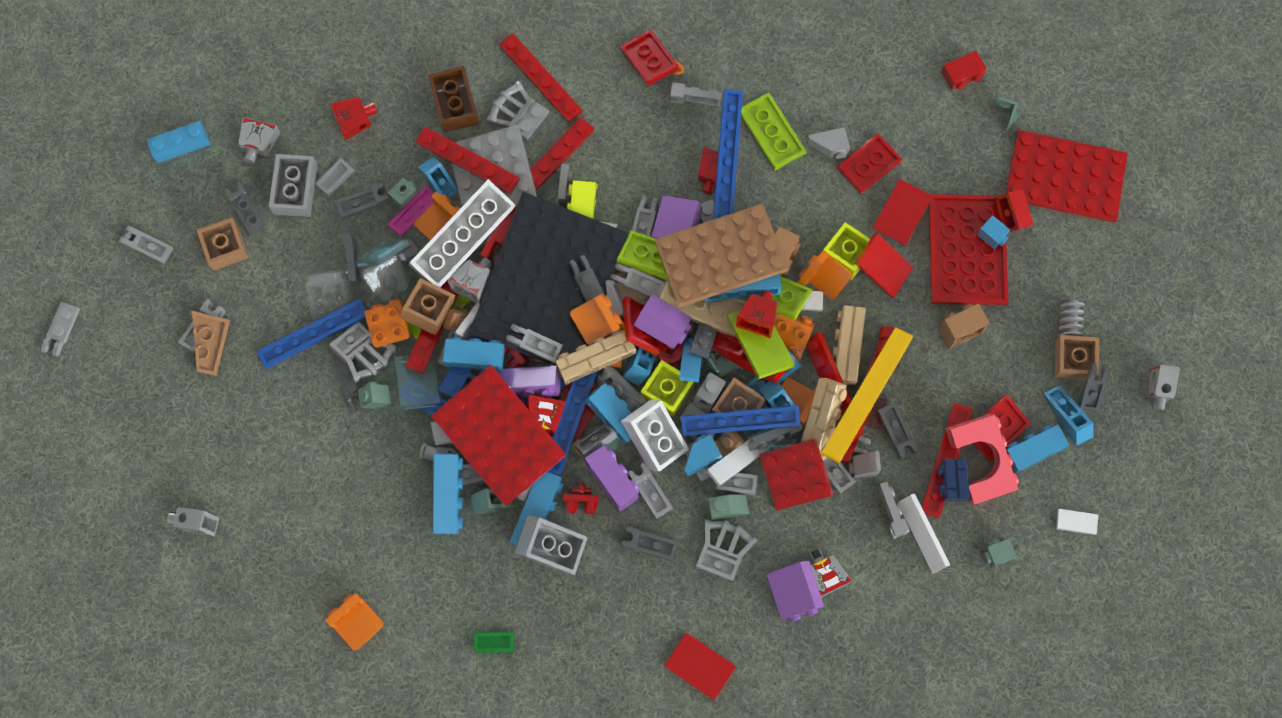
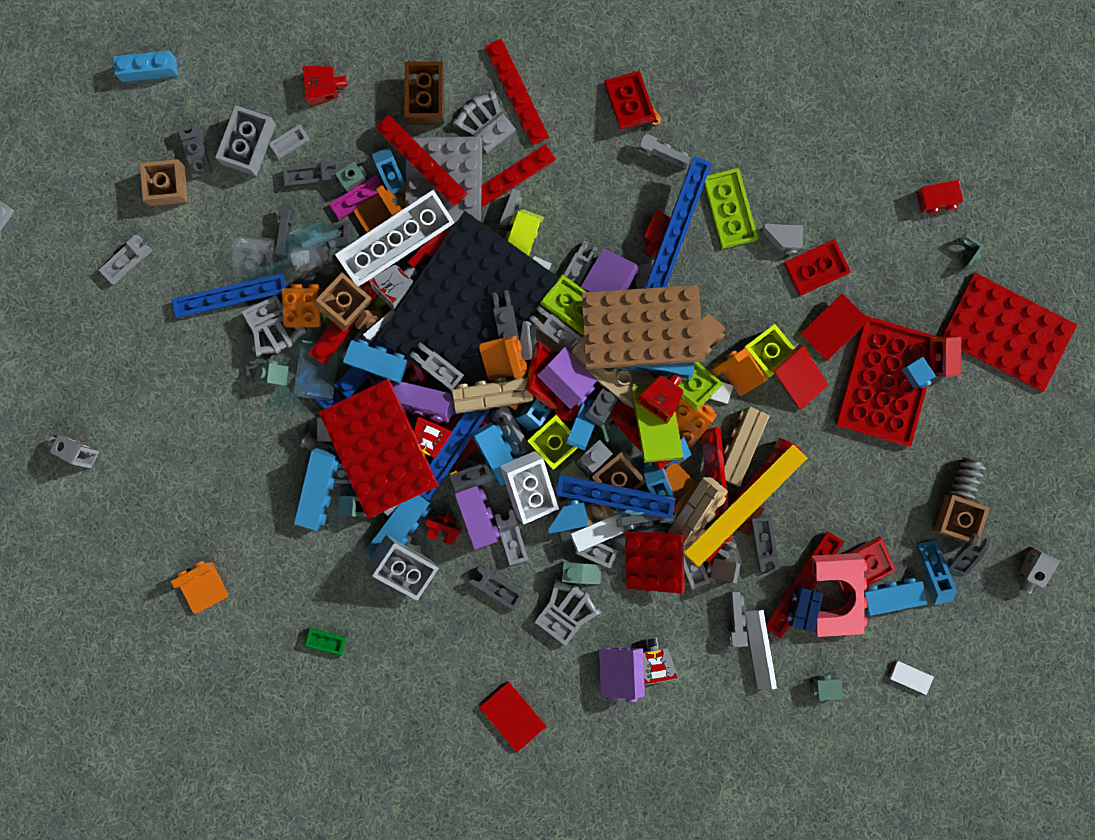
camera: 15 degrees right, 10 degrees up
(146, 245) = (91, 163): light grey plate -> none
(209, 338) = (128, 277): medium nougat wing -> none
(257, 138) = (222, 83): light grey torso -> none
(963, 325) = (864, 458): medium nougat brick -> none

